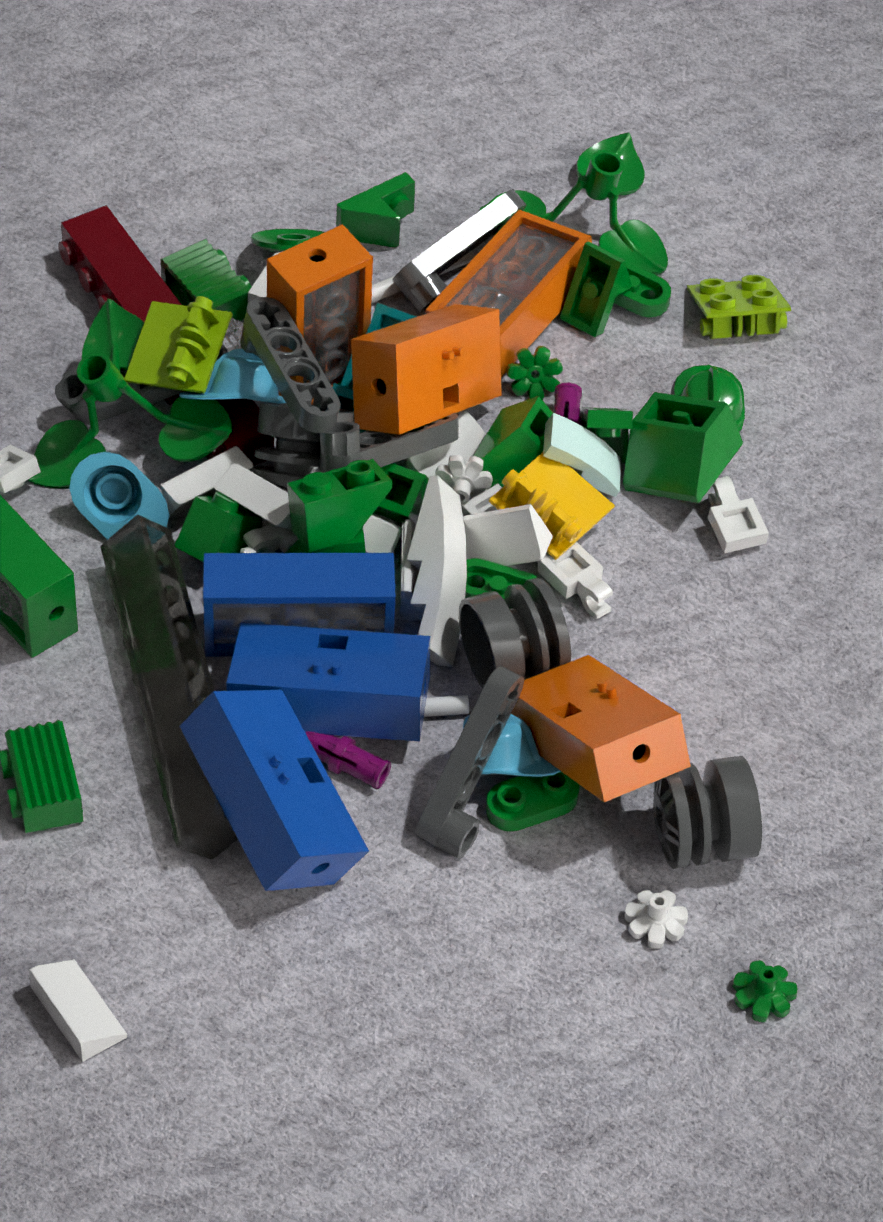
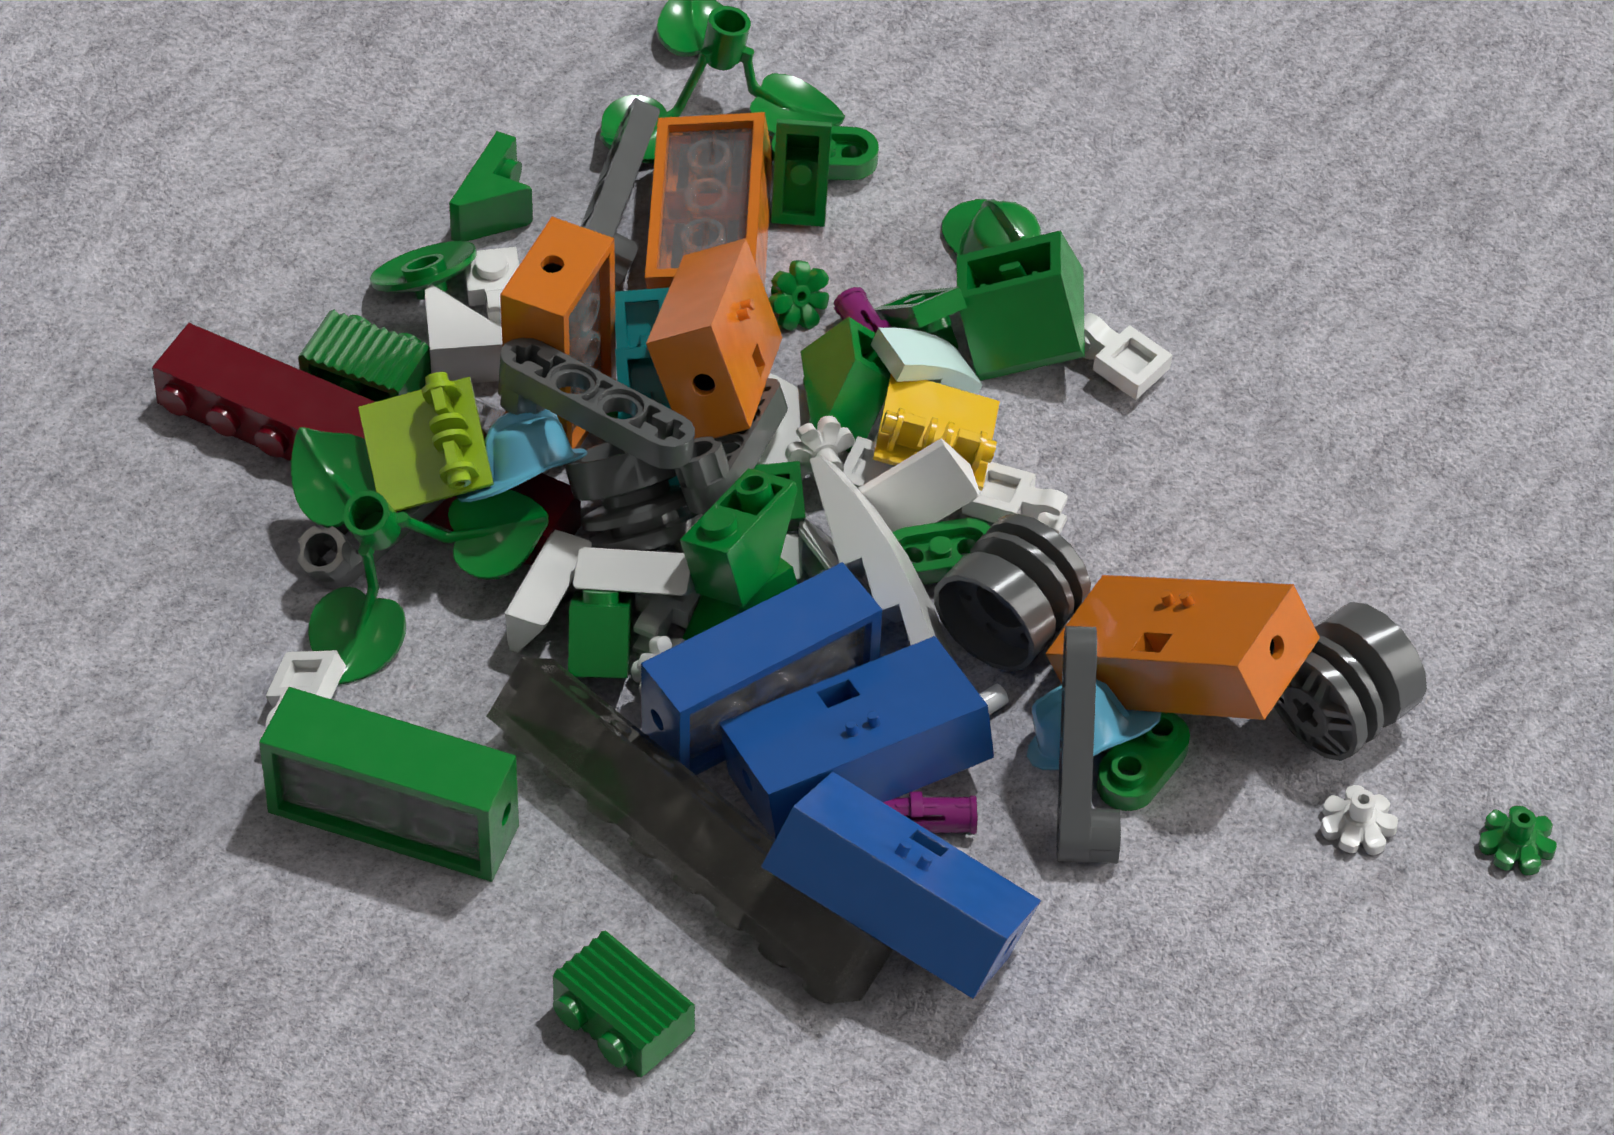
camera: 30 degrees left, 0 degrees up
(114, 491) = (463, 652): medium azure piece -> none
(727, 302) = (953, 120): lime hinge -> none

